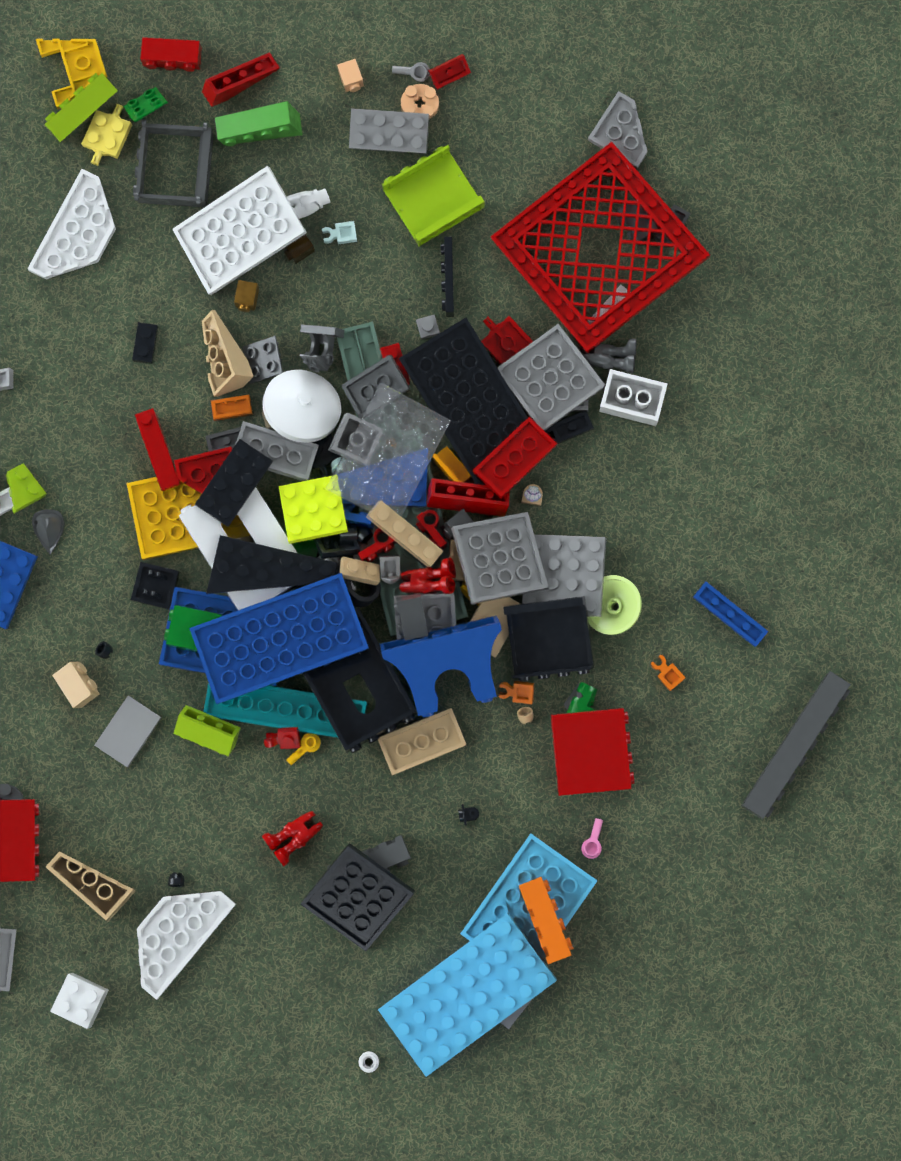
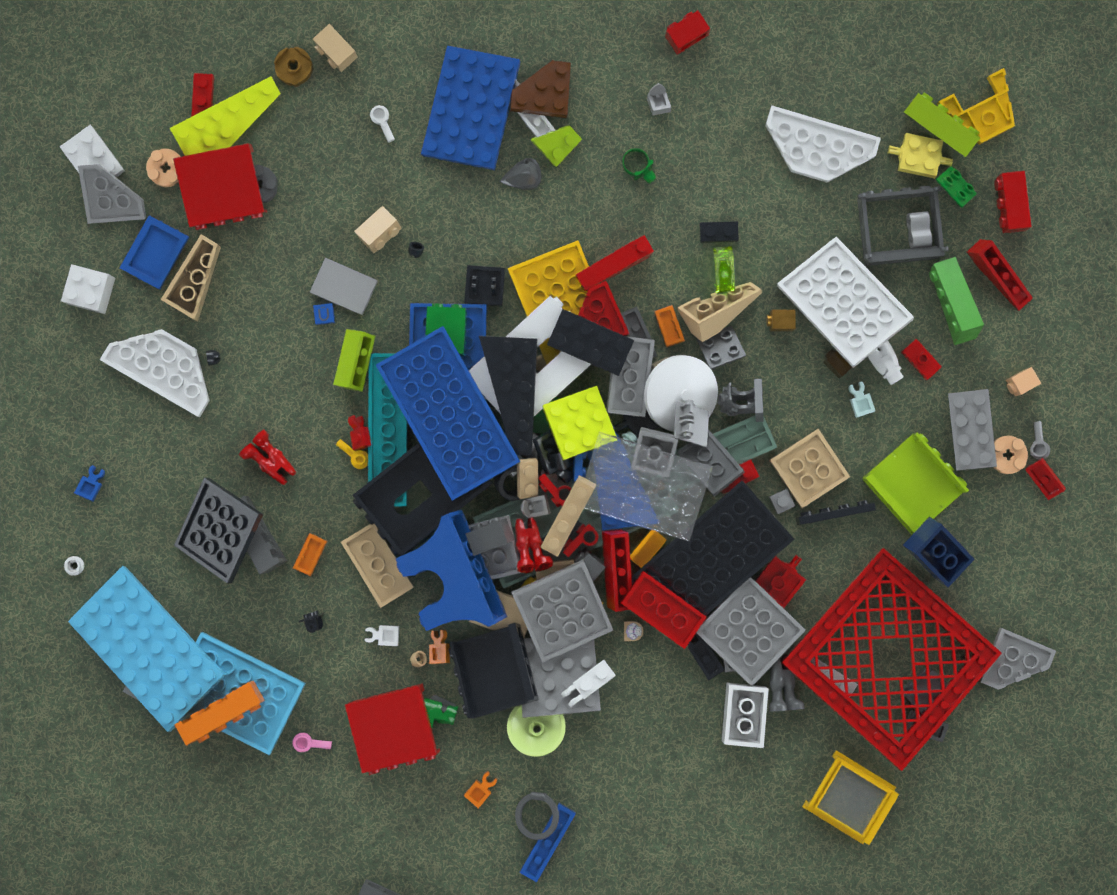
camera: 80 degrees right, 5 degrees up
(53, 925) = (154, 252): none -> blue piece
(74, 402) = (648, 175): none -> green piece
(152, 756) = (324, 314): none -> blue tile
(181, 148) = (919, 229): none -> light grey axle
(183, 343) = (724, 269): none -> clear neon green slope
(288, 1032) = (89, 487): none -> blue plate
(310, 168) = (921, 359): none -> red plate
(333, 399) = (691, 423): none -> light grey hinge
(399, 294) = (809, 468): none -> tan plate
(399, 809) = (310, 554): none -> orange plate
(496, 744) = (386, 635): none -> white plate
(502, 183) = (938, 551): none -> dark blue brick
(575, 542) = (590, 682): none -> white hinge
(683, 616) = (518, 815): none -> dark grey piece
(733, 308) = (852, 799): none -> piece

